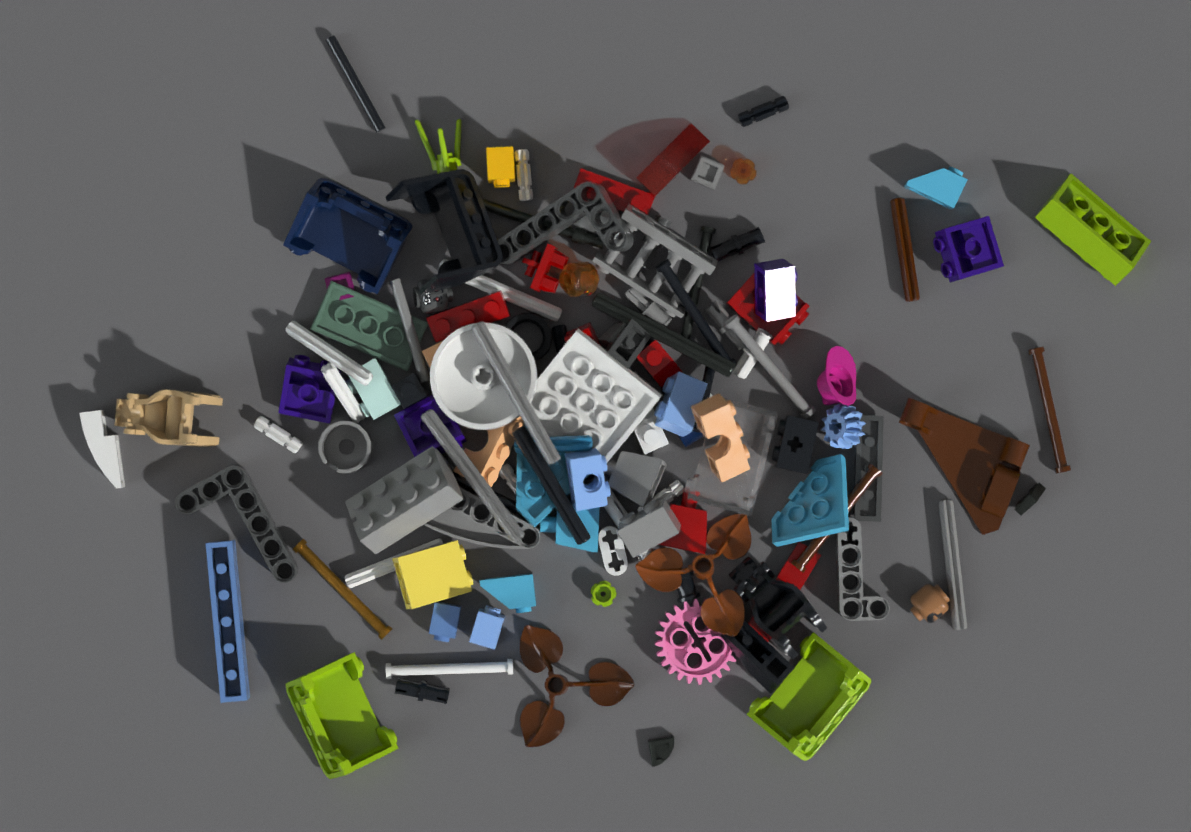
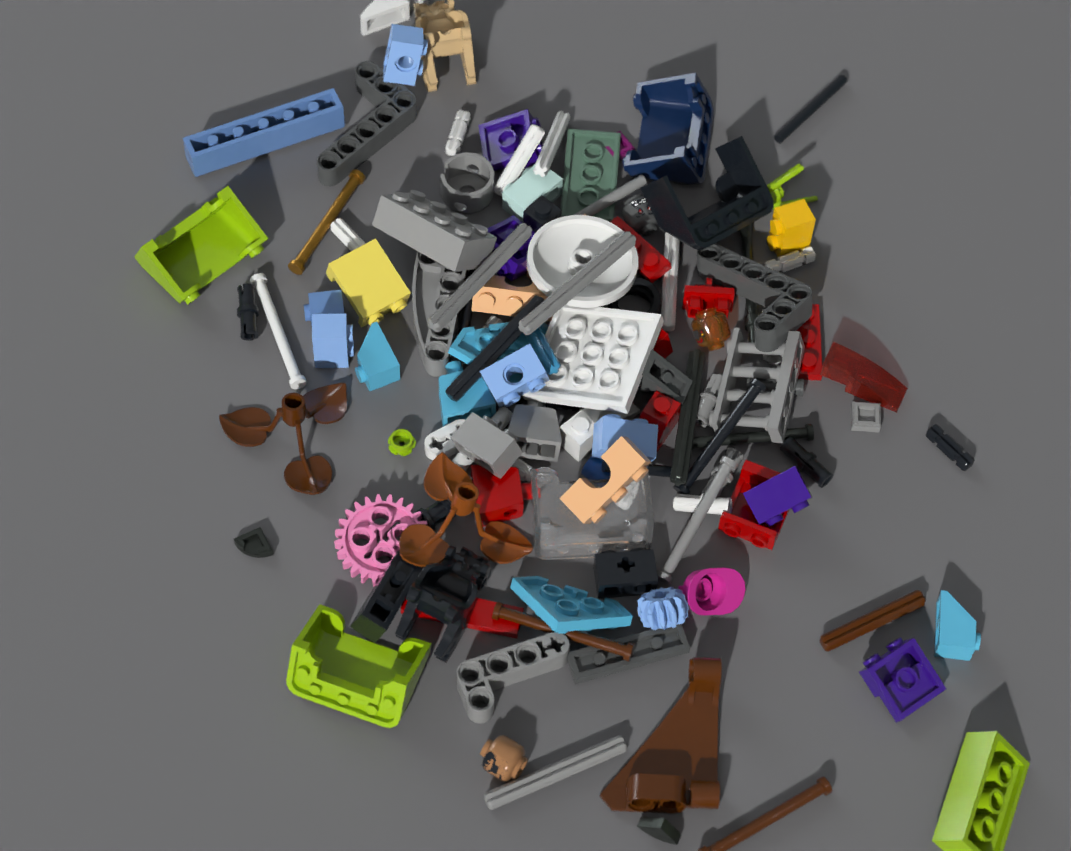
camera: 60 degrees right, 30 degrees down
(195, 466) = (404, 54): none -> light blue brick
(740, 164) = (882, 439): clear orange plate -> none

